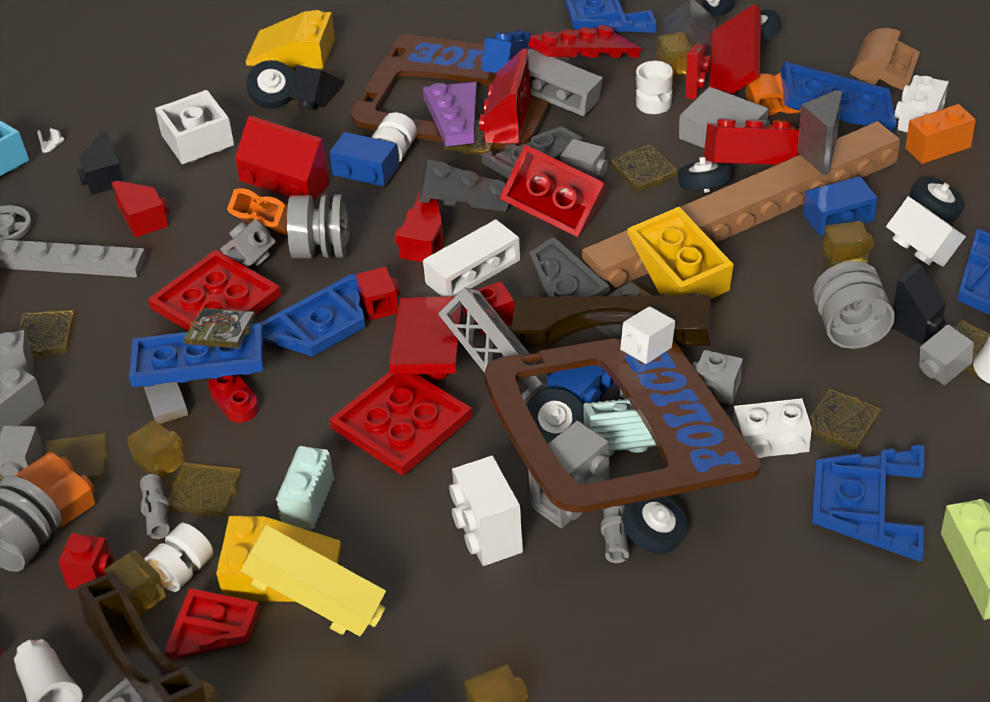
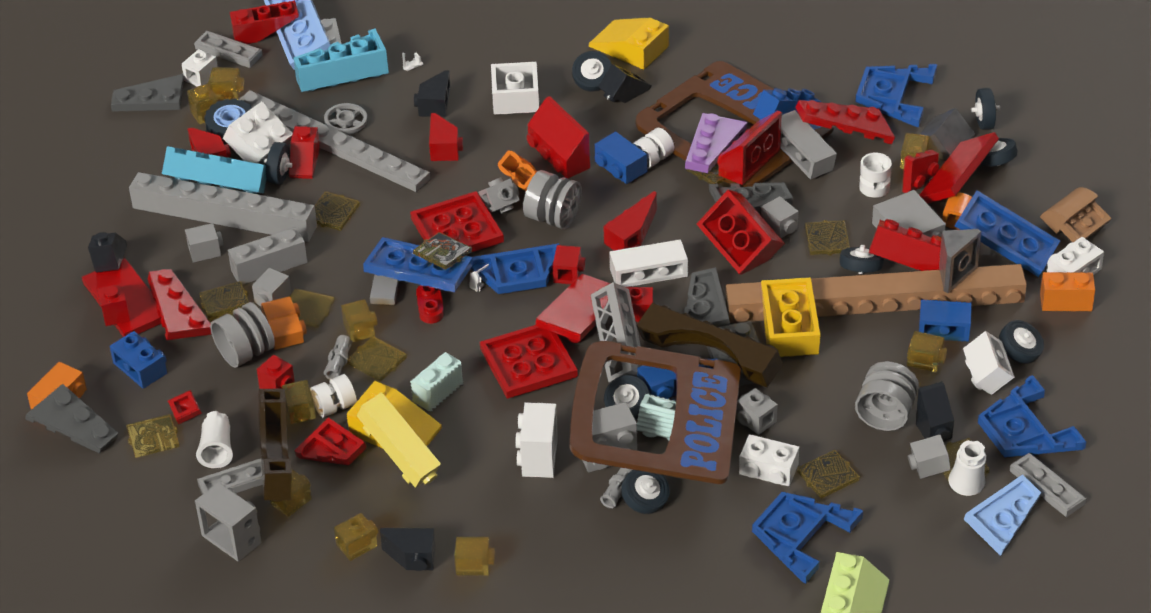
camera: 25 degrees right, 0 degrees up
(276, 349) = (475, 281): none -> white piece
(454, 185) = (672, 203): dark grey wing -> none
(647, 335) = (716, 362): white brick -> none

